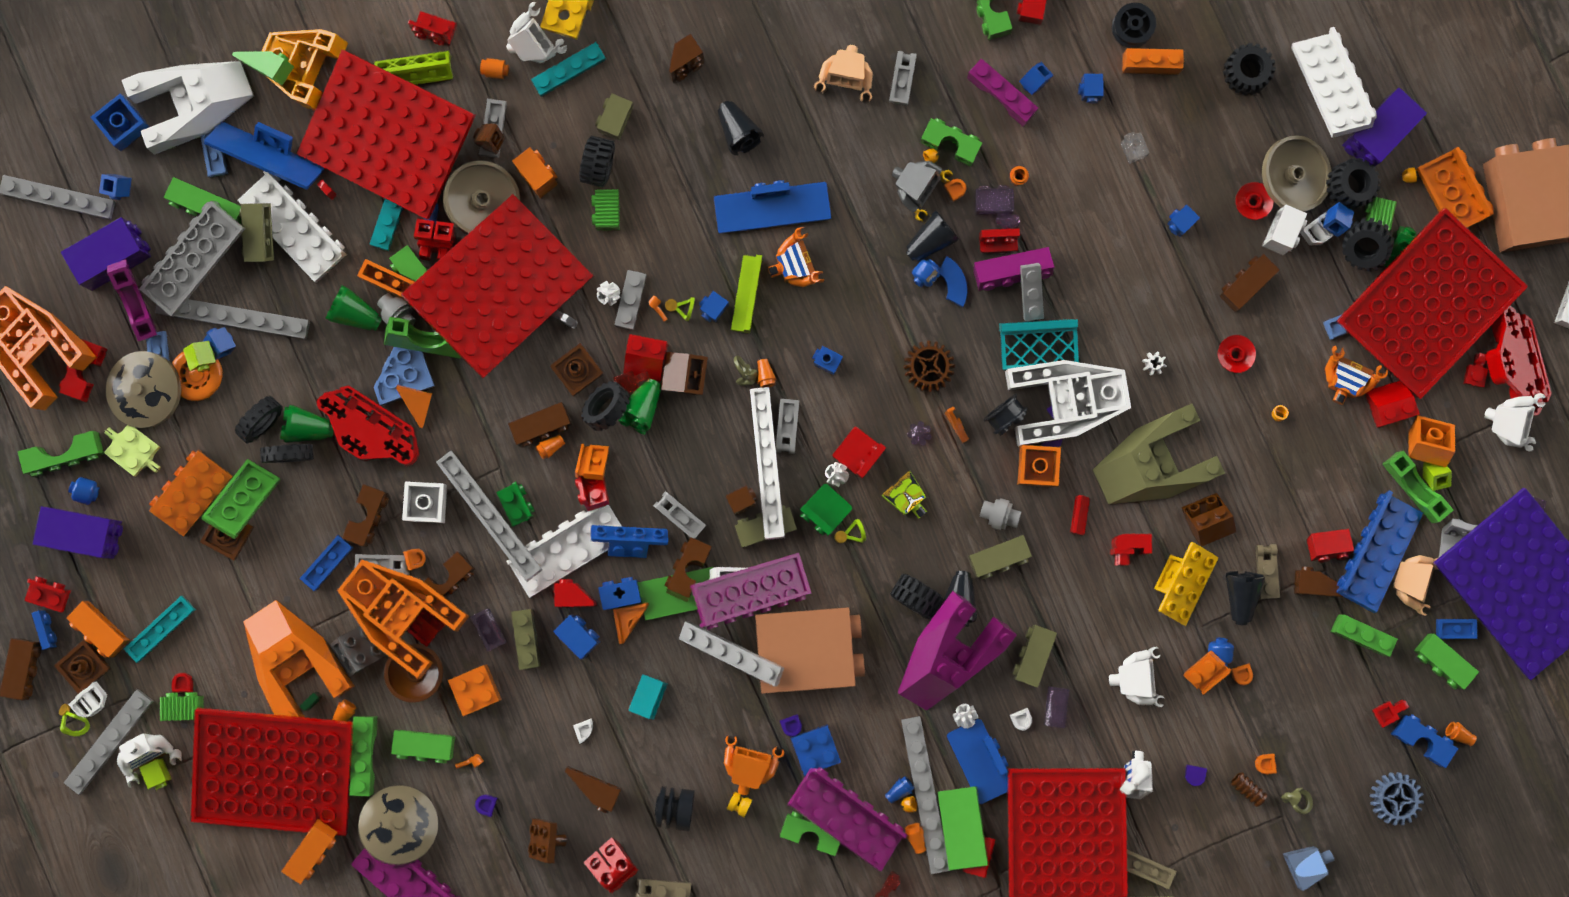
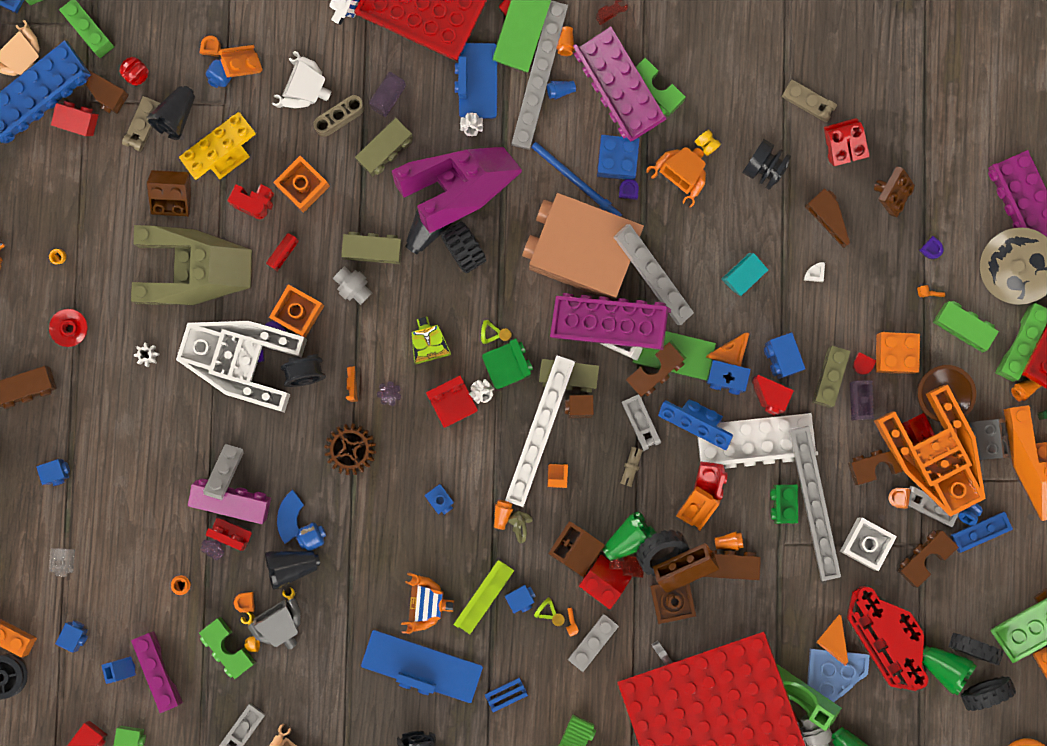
camera: 150 degrees left, 0 degrees up
(343, 572) = (970, 515): none -> blue wheel
(501, 666) = (863, 364): none -> red tile
(578, 401) = (685, 568): none -> reddish brown brick
(608, 293) = (611, 658): white gear -> none
(669, 471) = (631, 466): none -> dark tan pin
(695, 206) = (491, 701): none -> blue tile
(732, 431) = (557, 475): none -> orange panel
(787, 425) = (504, 457): light grey plate -> none
(806, 700) = (604, 204): none -> blue bar
(909, 804) = (558, 72): light orange hinge -> none
(994, 200) = (215, 573): clear purple brick -> none
(1021, 719) = (423, 99): white tile -> none
(1038, 327) = (234, 438): teal fence -> none
(1093, 584) = (301, 184): none -> orange brick
(1099, 660) = (343, 107): none -> dark tan beam
(1300, 616) = (133, 71): none -> red piece

